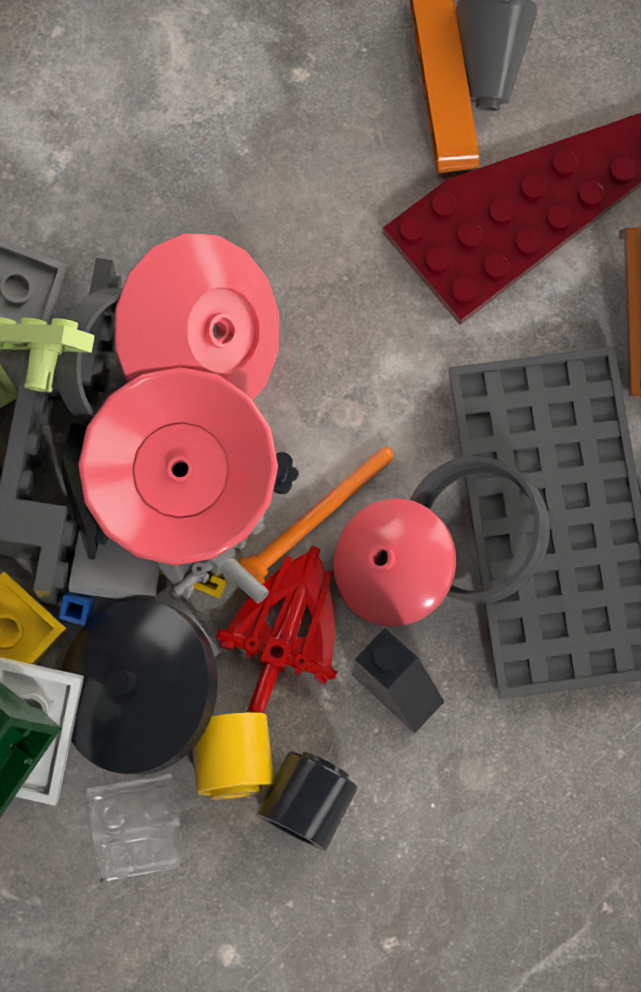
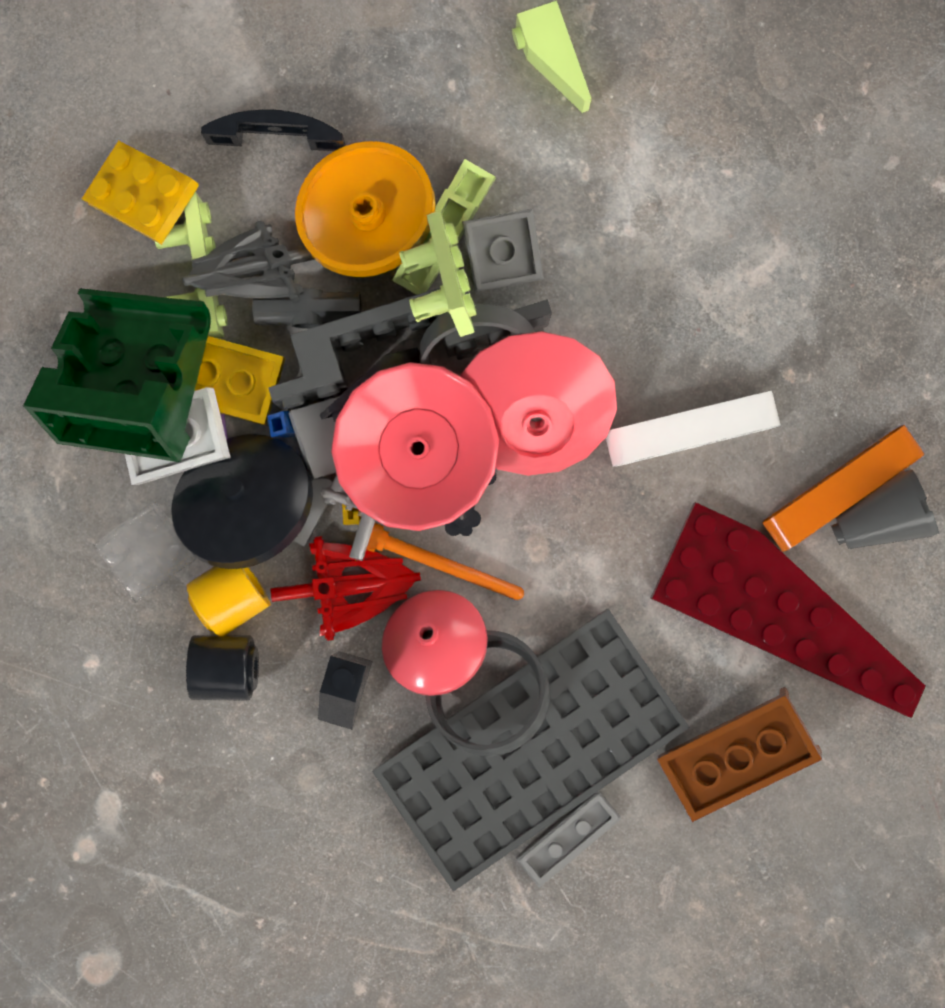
camera: 65 degrees right, 10 degrees up
(305, 193) = (692, 428): none -> white beam

